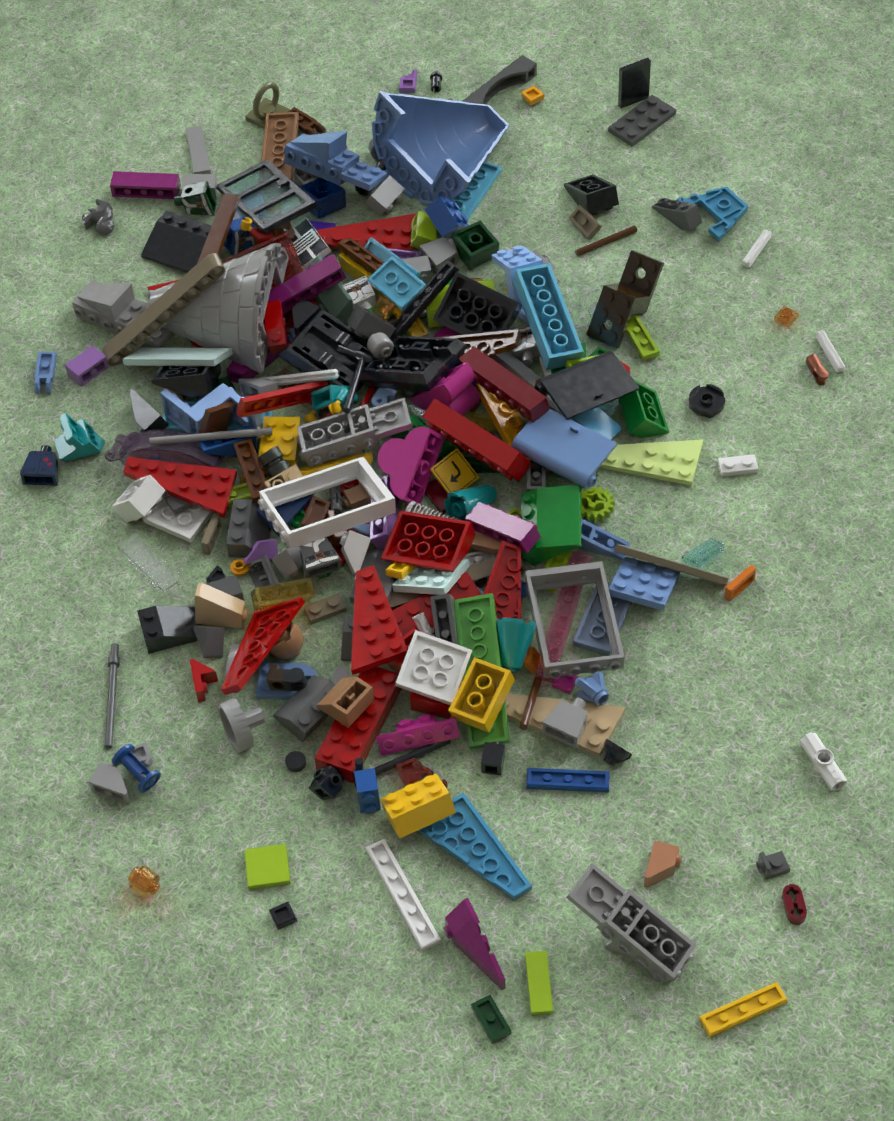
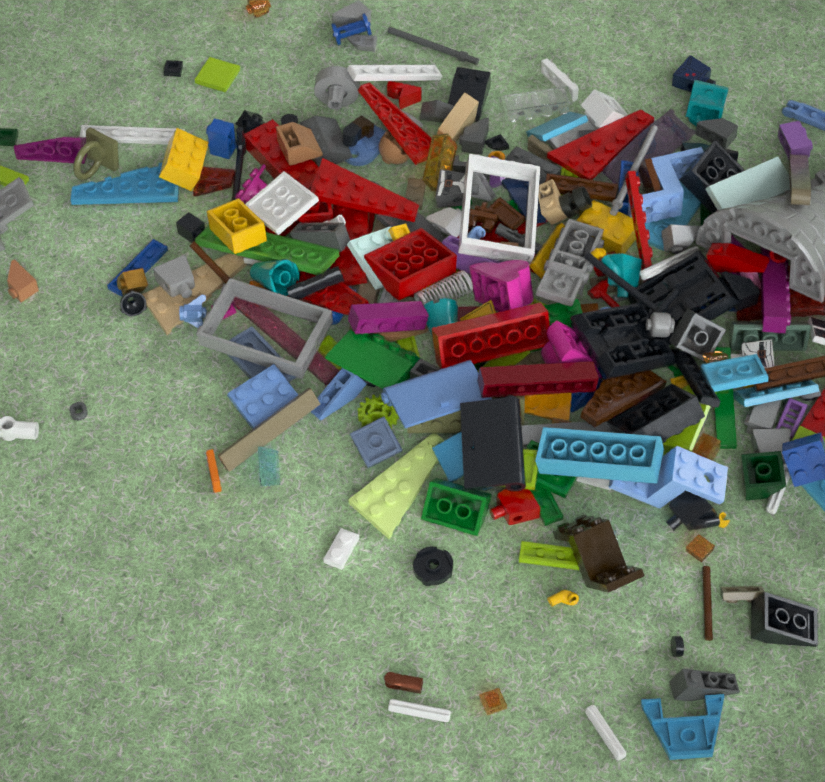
camera: 120 degrees right, 0 degrees up
(104, 565) = (558, 78): none -> white plate
(107, 419) = (717, 129): none -> dark grey slope
(174, 534) = (557, 126): none -> medium azure tile
(188, 684) = (394, 72): none -> white tile
(455, 888) = (101, 150): none -> olive tile
(516, 607) = (315, 283): none -> black axle
(564, 259) = (700, 548): none -> clear orange plate
(594, 761) = (133, 280): none -> pearl gold brick
(625, 488) = (376, 442): none -> sand blue tile
(658, 238) = (677, 646): none -> black tile
(668, 317) = (564, 596): none -> yellow arm
(759, 729) = (78, 416): none -> dark grey bush

